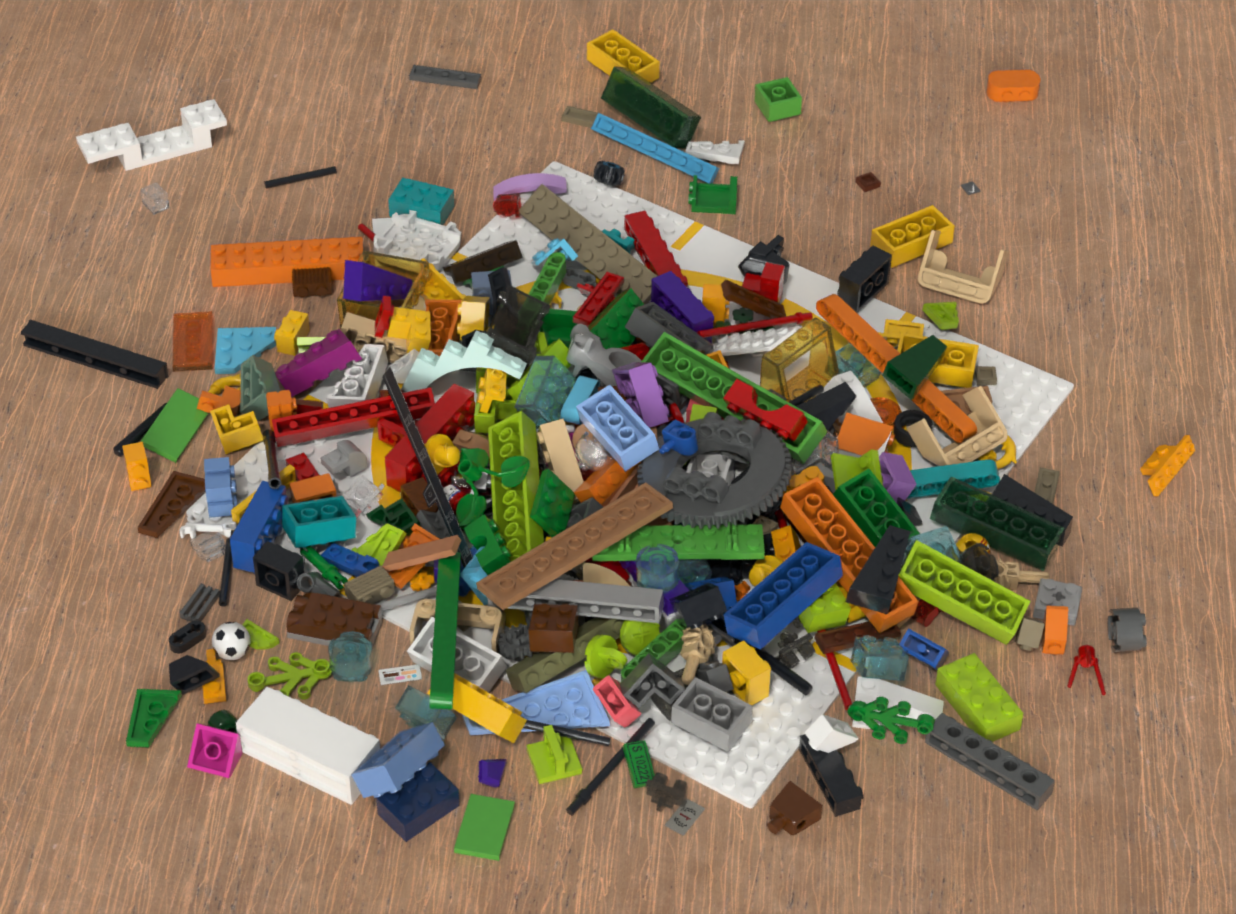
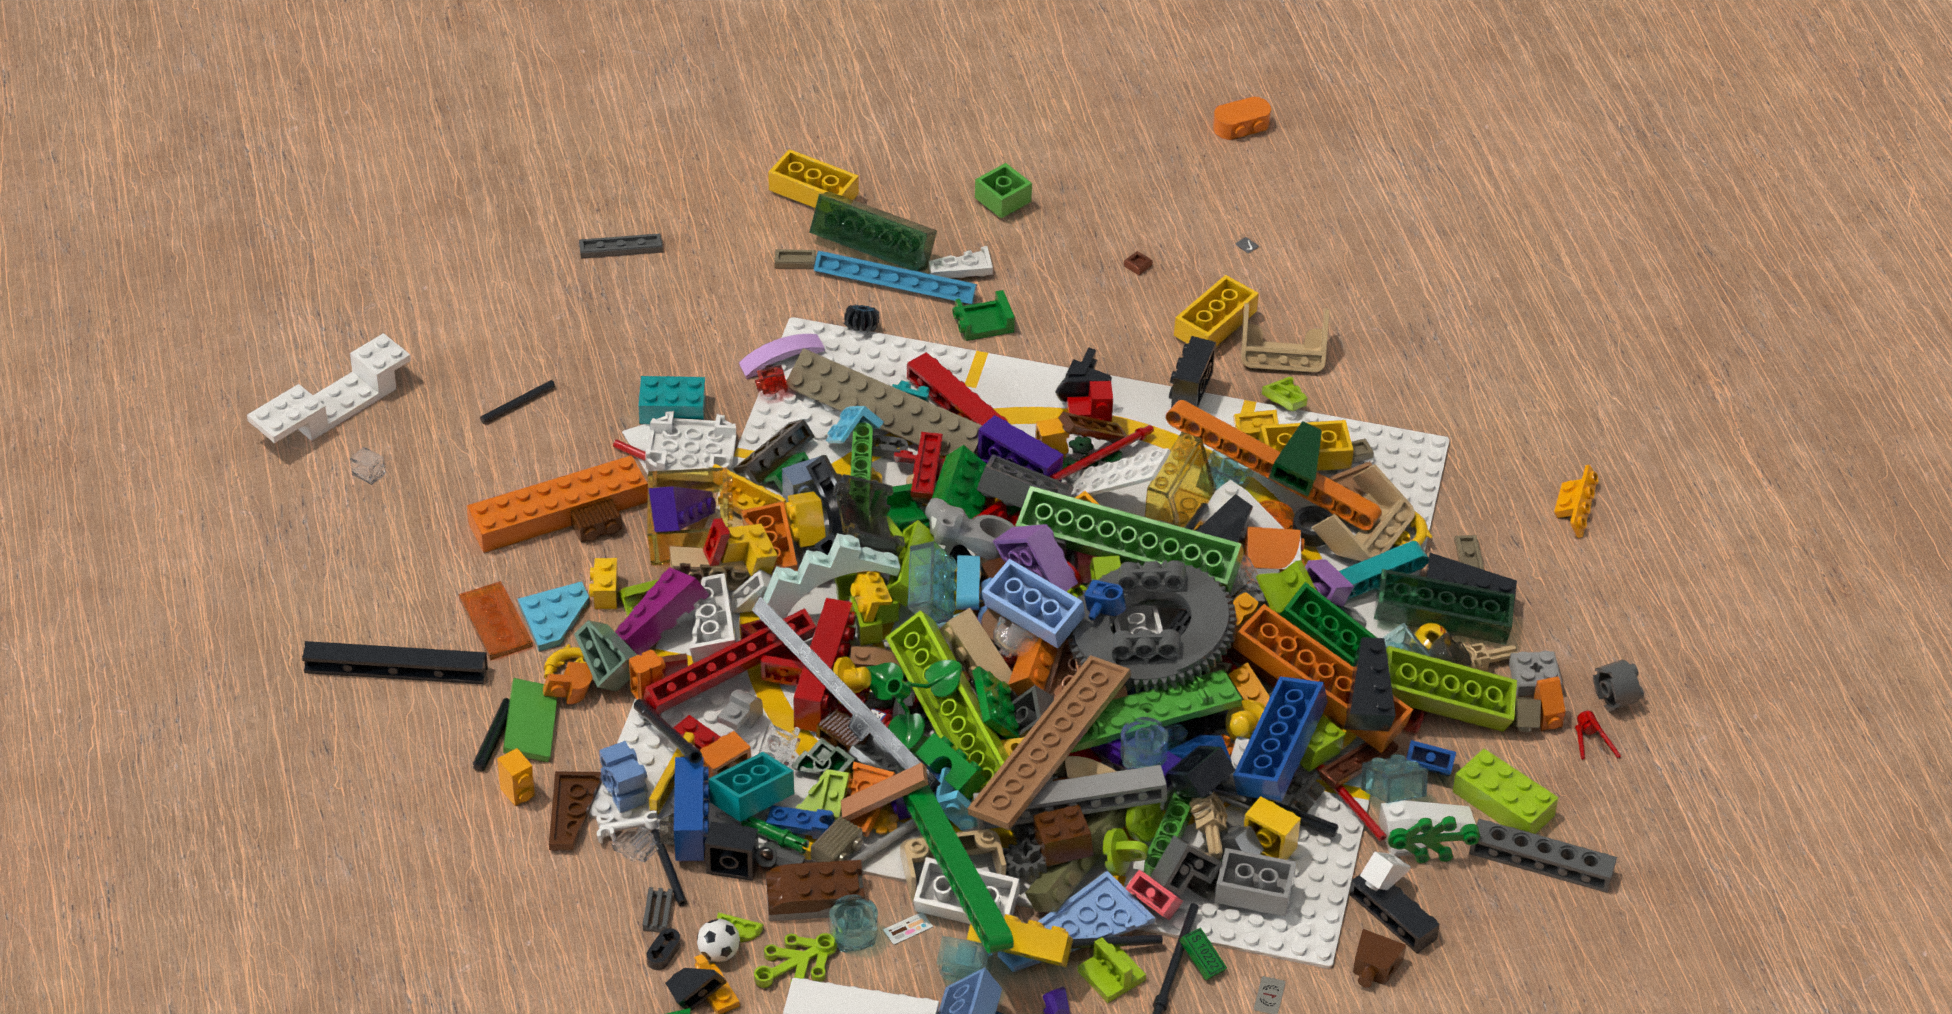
camera: 20 degrees left, 0 degrees up
(237, 431) = (601, 711): yellow brick -> none
(664, 795) = (1243, 978): clear smoke hips -> none
(785, 421) = (1204, 553): red arch -> none

